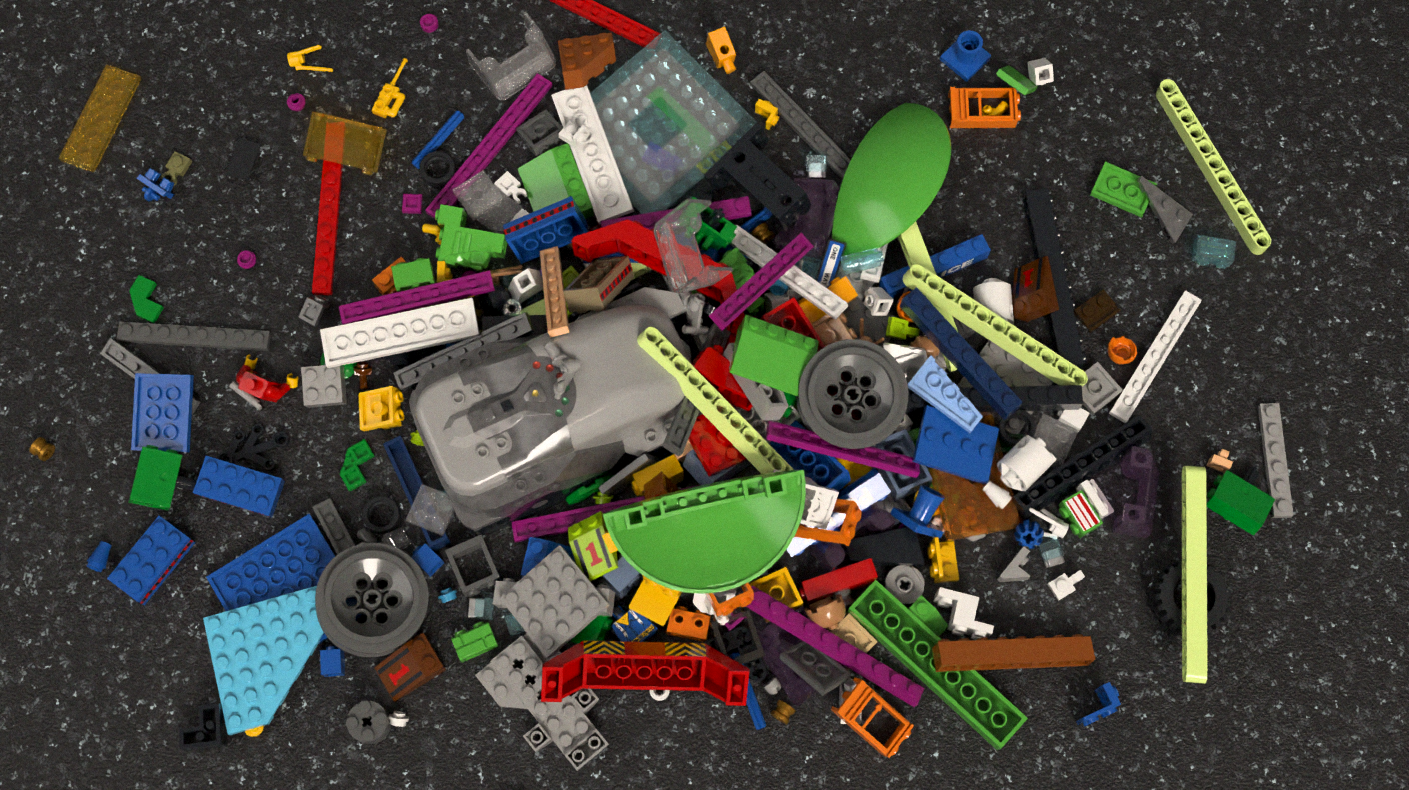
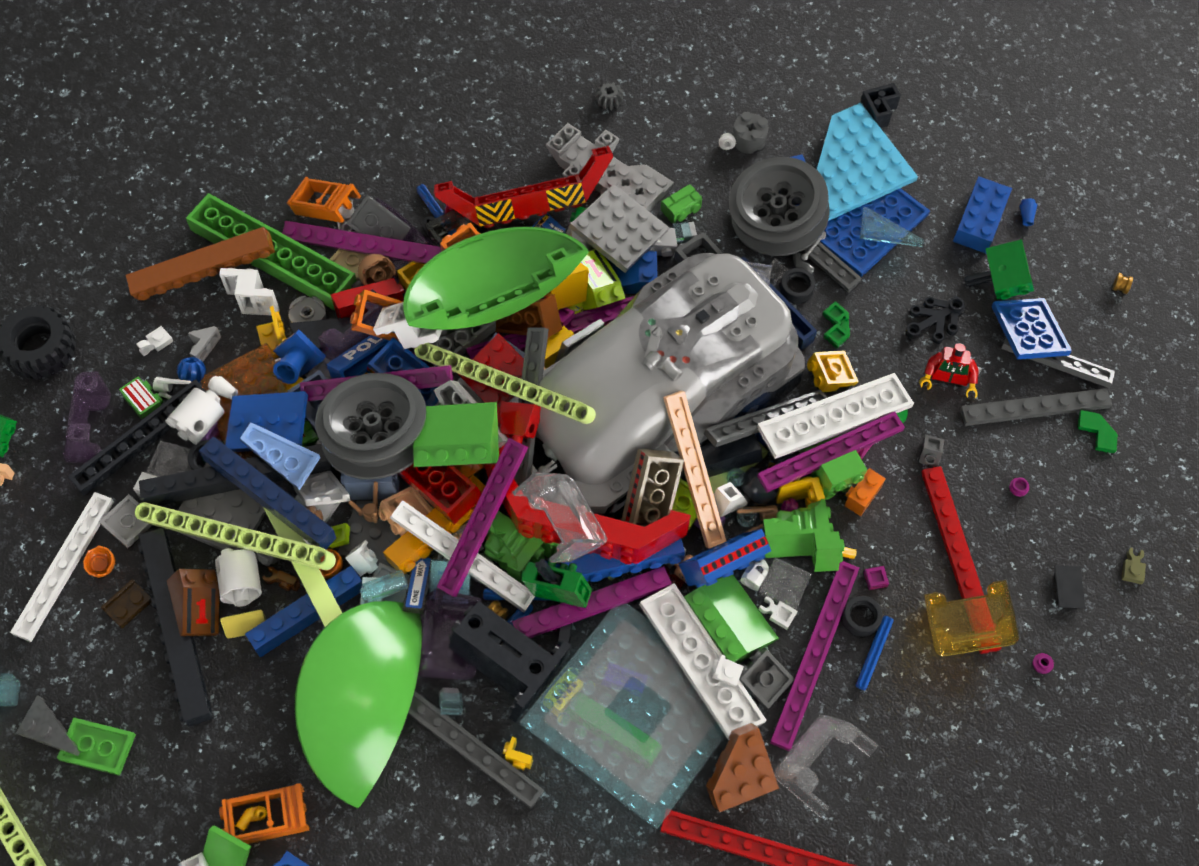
camera: 165 degrees right, 10 degrees down
(163, 188) = (1144, 538): blue hips -> none
(238, 486) = (933, 278): blue brick -> none
(270, 561) = (881, 229): none -> clear light blue wing
(297, 58) = (1062, 713): yellow plant -> none
(323, 386) = (895, 364): light grey brick -> none
(385, 96) = (948, 695): yellow piece -> none
(410, 667) = (720, 178): reddish brown slope -> none
(427, 559) = (745, 250): blue brick -> none
(429, 23) = (935, 793): magenta tile -> none
(447, 595) = (716, 234): dark azure plate -> none
(478, 195) = (809, 588): clear plate -> none
(721, 49) = (585, 820): light orange torso -> none
(772, 686) = (416, 217): light grey hinge -> none
(782, 712) = (403, 198): pearl gold wheel -> none
(929, 615) = (285, 289): bright green slope -> none
(990, 271) = (240, 624): none -> light yellow slope
(1051, 553) = (168, 364): clear light blue piece -> none
(1096, 498) = (124, 411): white bracket -> none
(1109, 699) = (121, 239): blue bracket -> none
(1194, 575) = (29, 350): yellowish green beam -> none

